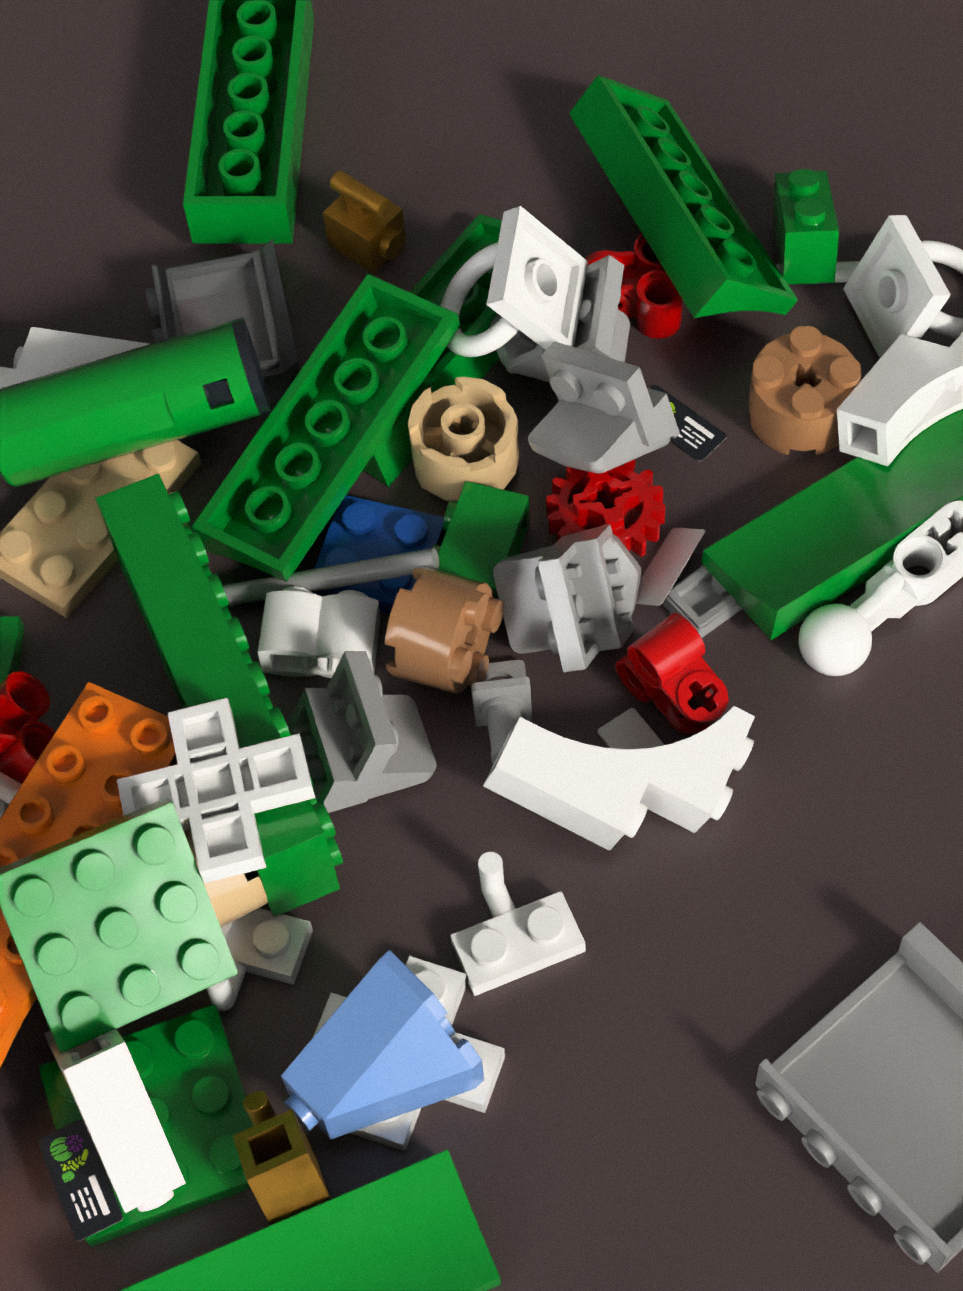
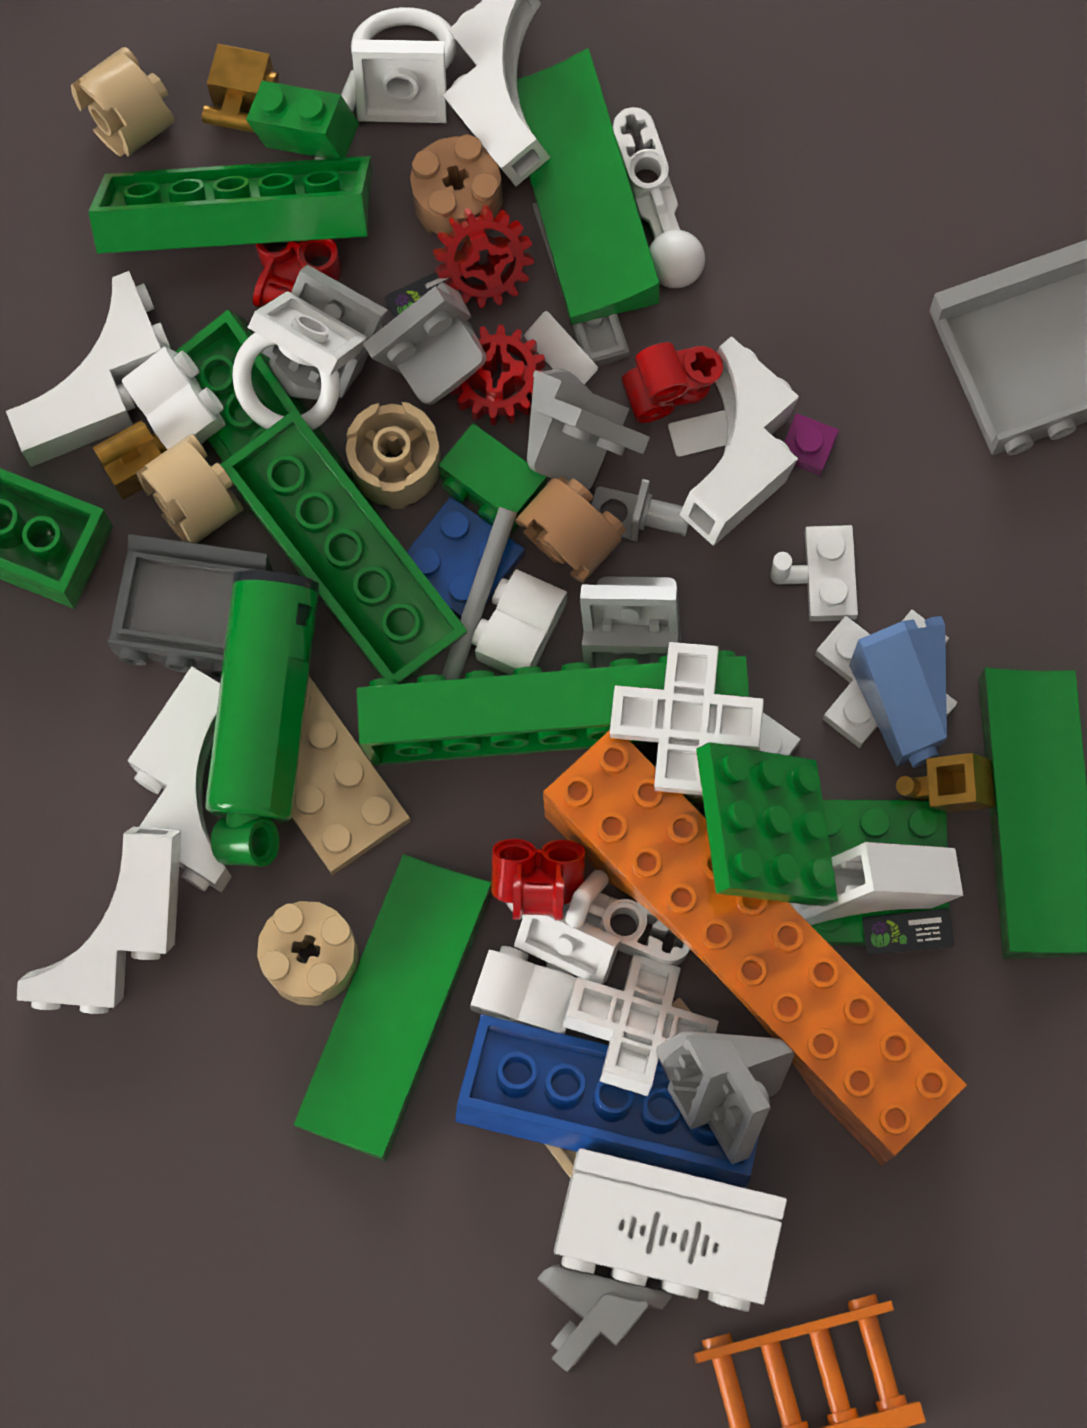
camera: 70 degrees left, 15 degrees up
(336, 266) = (189, 491): none -> tan brick
(426, 171) = (93, 397): none -> white arch
(436, 231) = (173, 398): none -> white brick
(671, 862) = (810, 443): none -> magenta plate
(742, 74) = (123, 102): none -> tan brick
(752, 432) = (500, 251): none -> red gear
(827, 150) = (234, 84): none -> pearl gold brick

